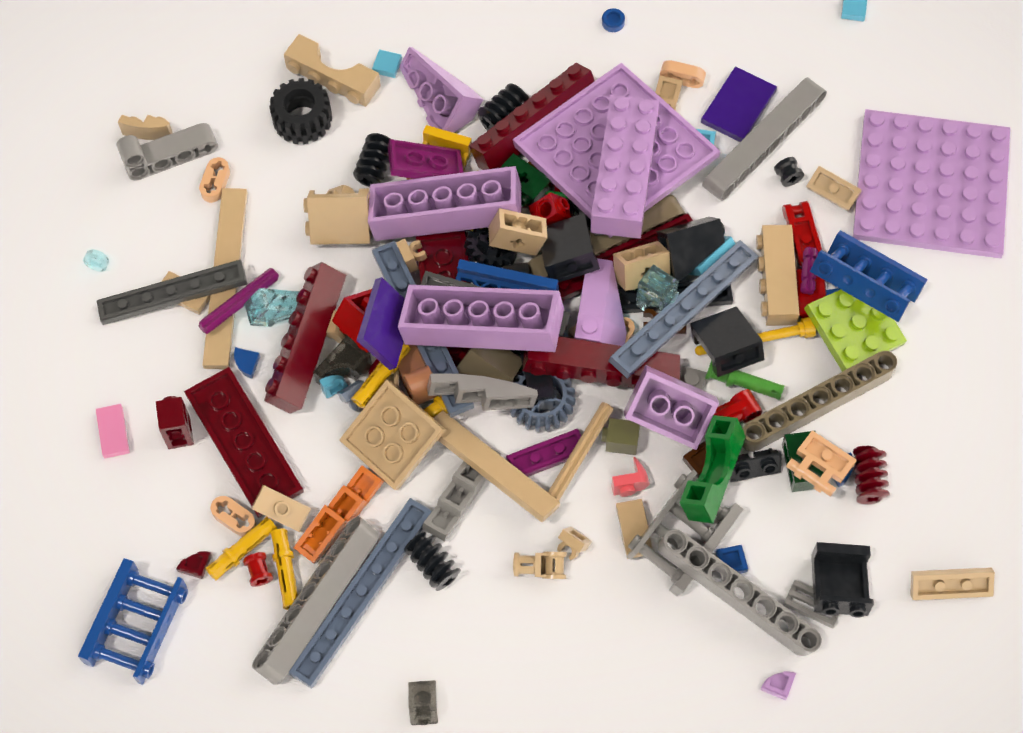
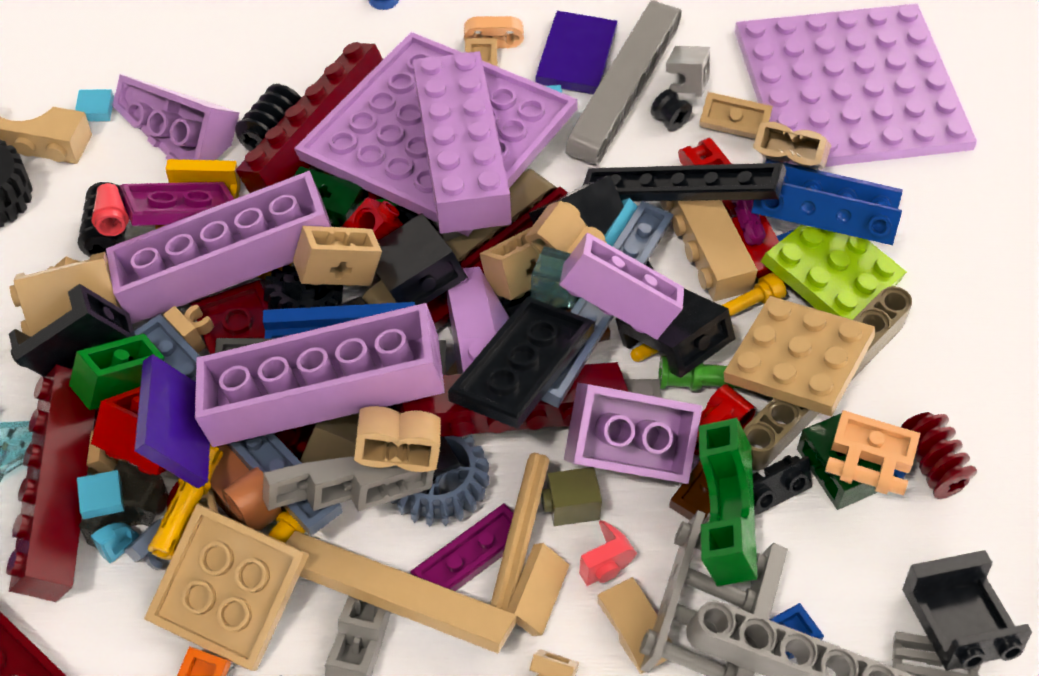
camera: 20 degrees left, 10 degrees down
(330, 355) = (100, 494): none -> medium azure tile
(340, 249) = (87, 325): none -> black panel
(356, 274) = (110, 369): none -> green brick
(378, 158) = (109, 211): none -> coral cone
(517, 373) = (397, 439): none -> tan brick
(580, 489) = (538, 589): none -> tan tile
(613, 342) = (521, 362): none -> black tile
(672, 258) = (560, 228): none -> tan brick
(693, 308) = (622, 286): none -> lavender brick
(774, 238) = (695, 182): none -> black tile
(802, 383) = (800, 355): none -> tan plate
(814, 141) = (693, 64): none -> light grey hinge
(863, 231) = (801, 146): none -> tan brick

